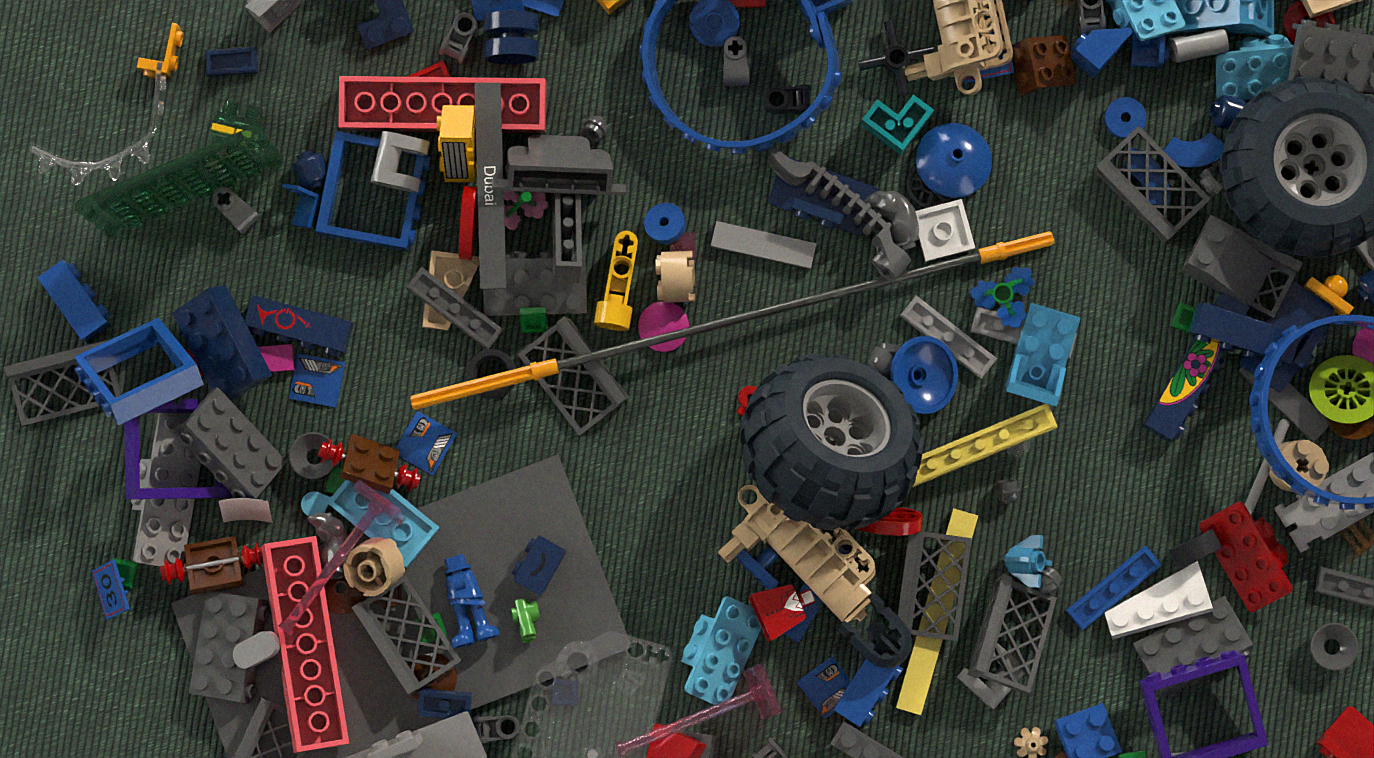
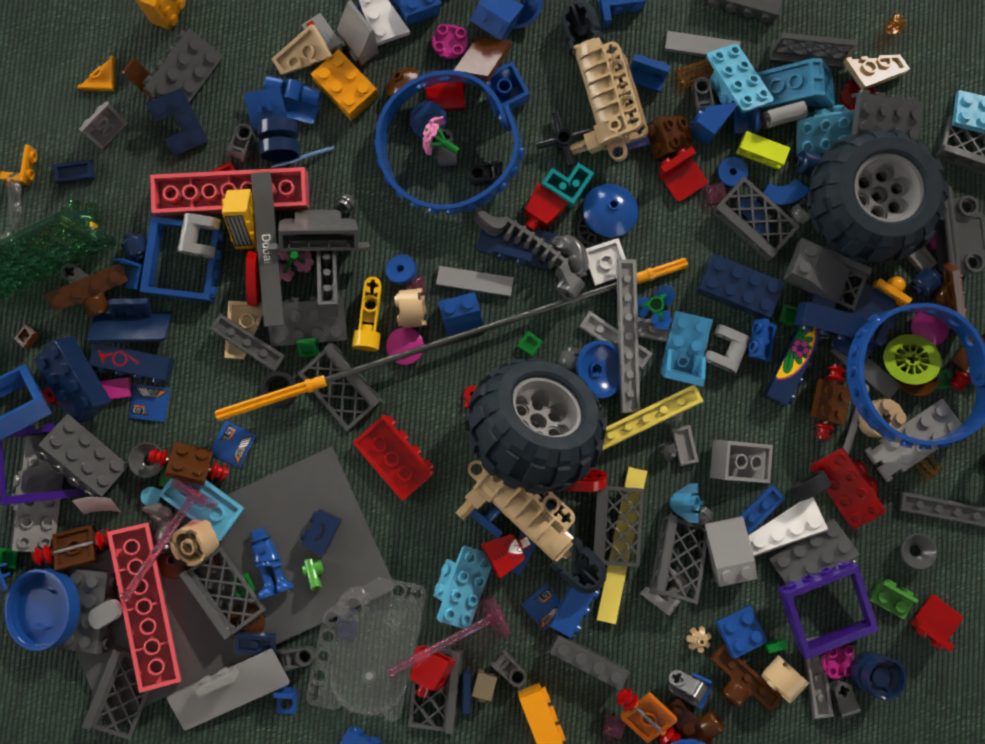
camera: 15 degrees left, 0 degrees up
(160, 281) = (27, 336): none -> reddish brown tile
(169, 640) = (42, 609): none -> blue brick
(248, 226) = (88, 291): none -> reddish brown plate
(299, 271) = (129, 322): none -> dark blue bracket
(527, 67) = (304, 156): none -> medium blue piece
(641, 473) = (394, 457): none -> red bracket
(716, 43) = (430, 132): none -> plant
(741, 288) = (460, 313): none -> blue slope
(832, 334) = (529, 344): none -> green tile
(862, 152) = (543, 208): none -> red torso
(964, 332) = (628, 335): none -> light grey tile
(1032, 484) = (685, 444): none -> light grey tile
(1055, 118) = (682, 174): none -> red bracket
(1080, 628) = (730, 552): none -> light grey slope
(1099, 145) = (715, 193): none -> clear pink tile
(1106, 511) = (741, 461): none -> light grey slope
(1108, 364) = (735, 351): none -> light grey connector
(1121, 276) = (740, 287): none -> dark blue brick
(1146, 350) = (762, 340): none -> blue bracket
(1168, 91) = (763, 150): none -> neon yellow piece
(1231, 441) = (830, 402): none -> reddish brown plate
(1294, 707) = (892, 599): none -> bright green bracket

